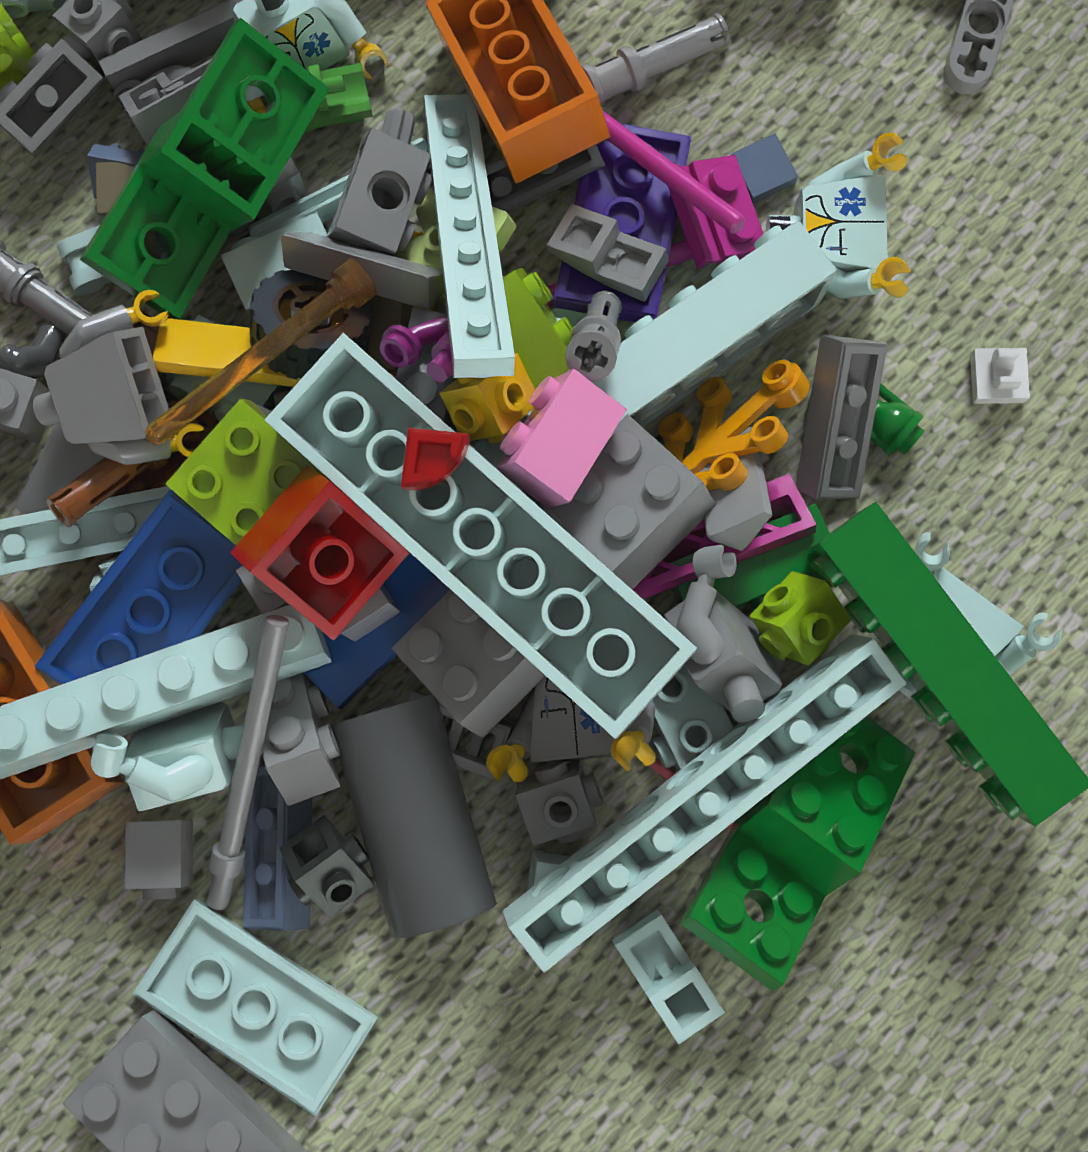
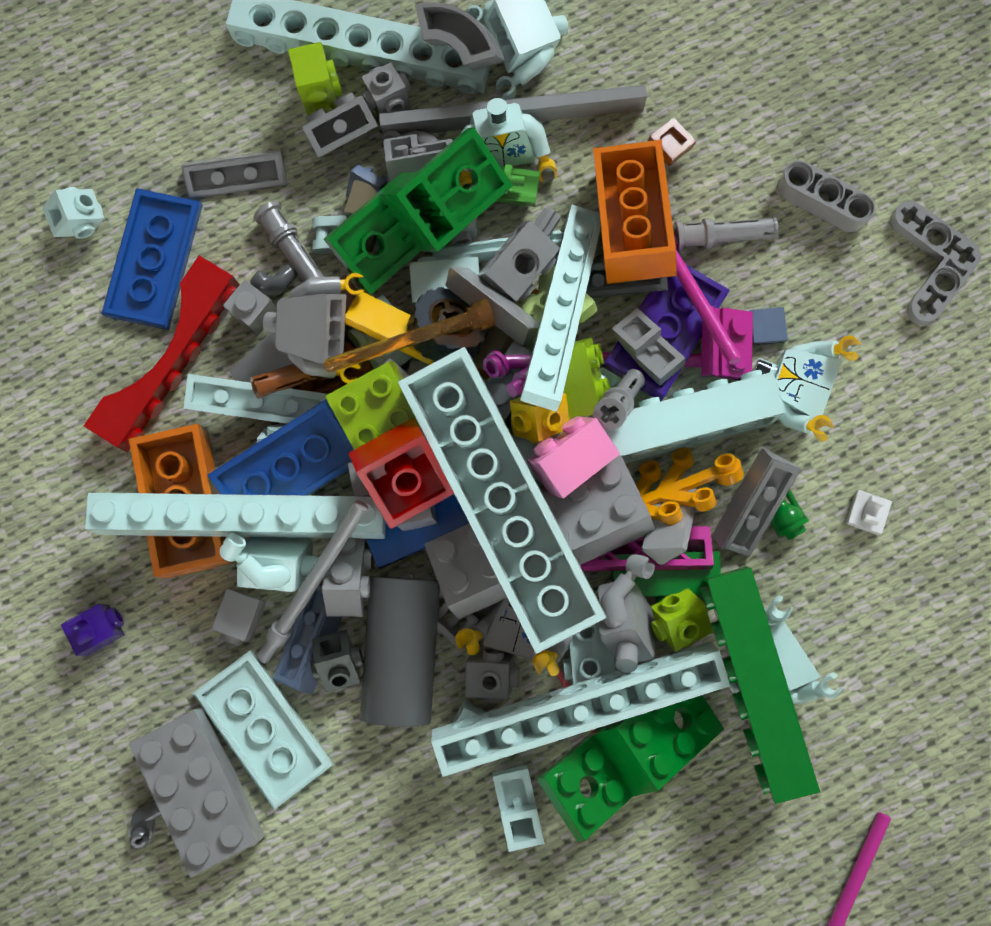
camera: 25 degrees right, 0 degrees up
(431, 457) = (489, 442): red tile -> none

